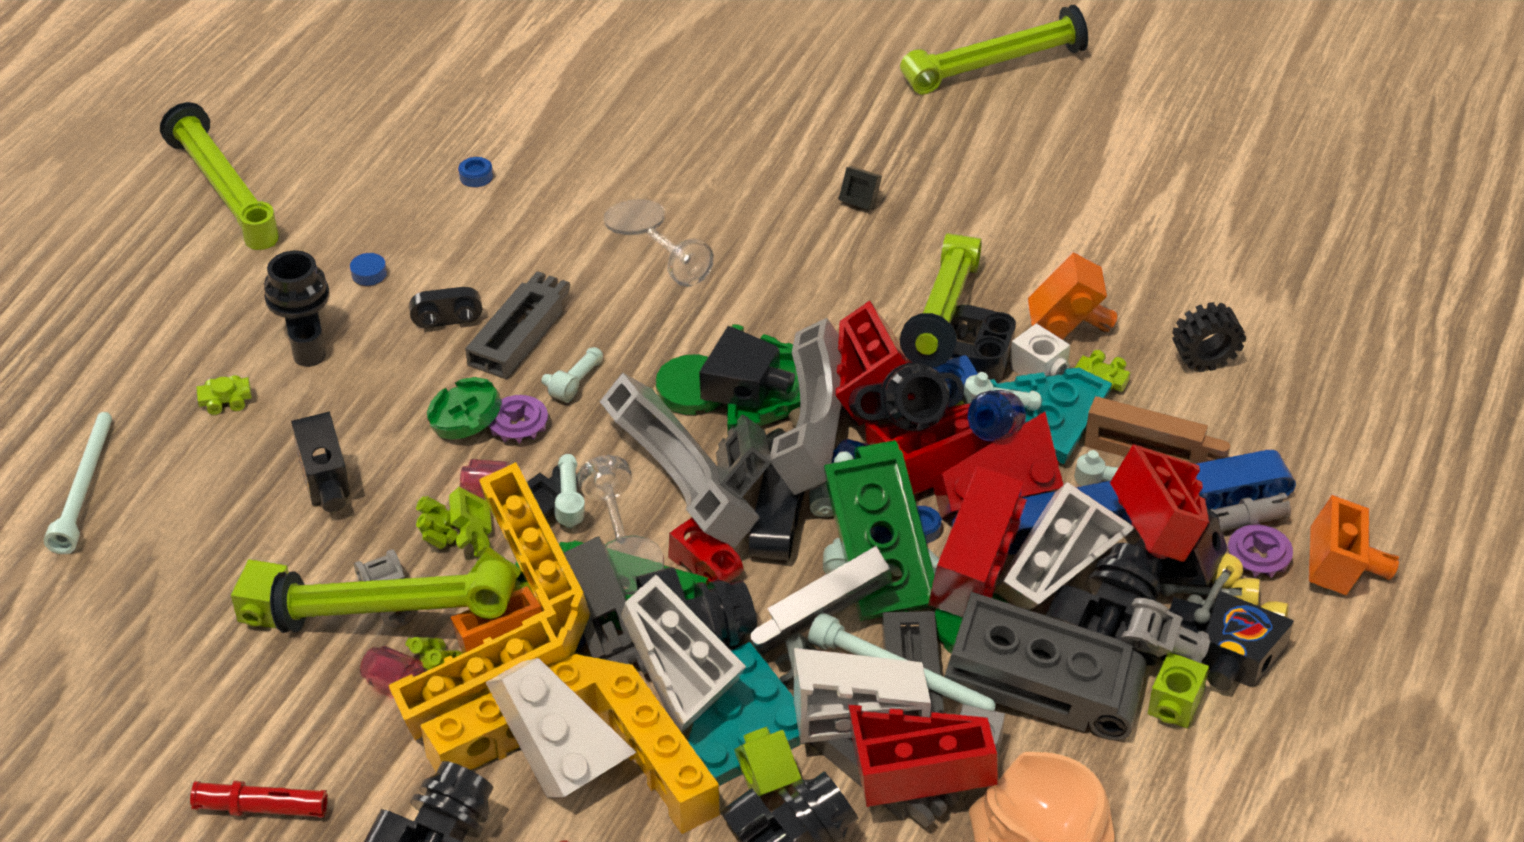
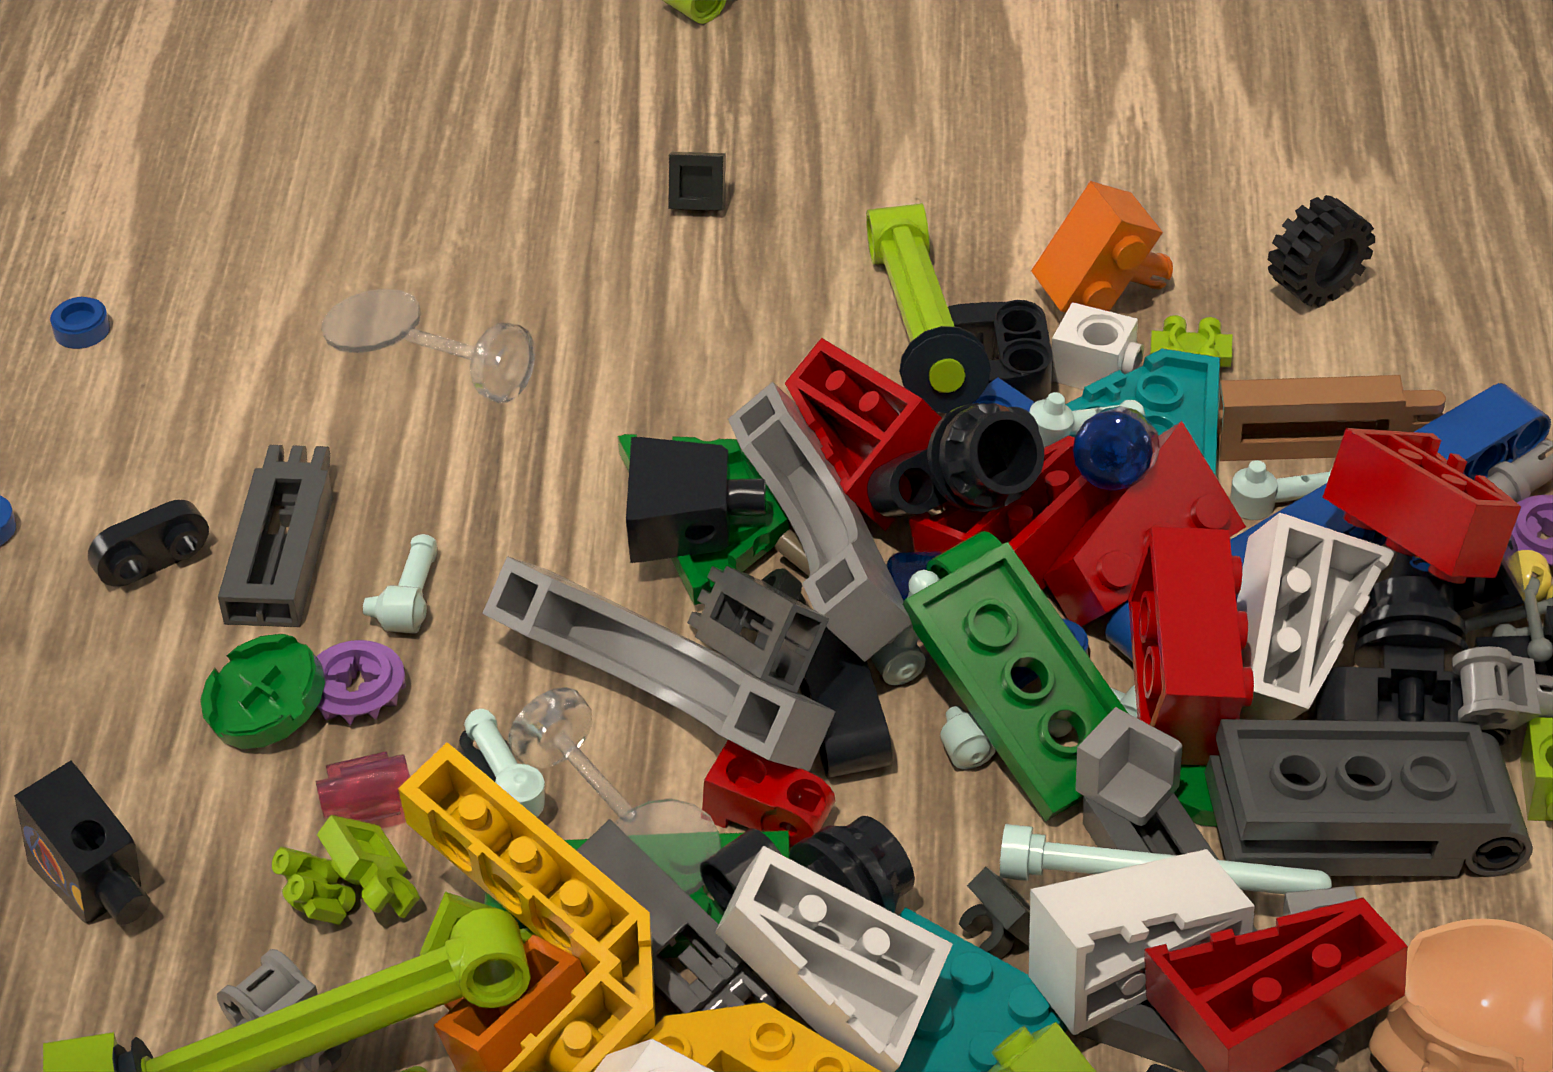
camera: 20 degrees left, 0 degrees up
(680, 385) = (590, 545): green tile -> none
(827, 595) = (995, 803): hinge -> none
(911, 603) = (1128, 766): none -> light grey panel

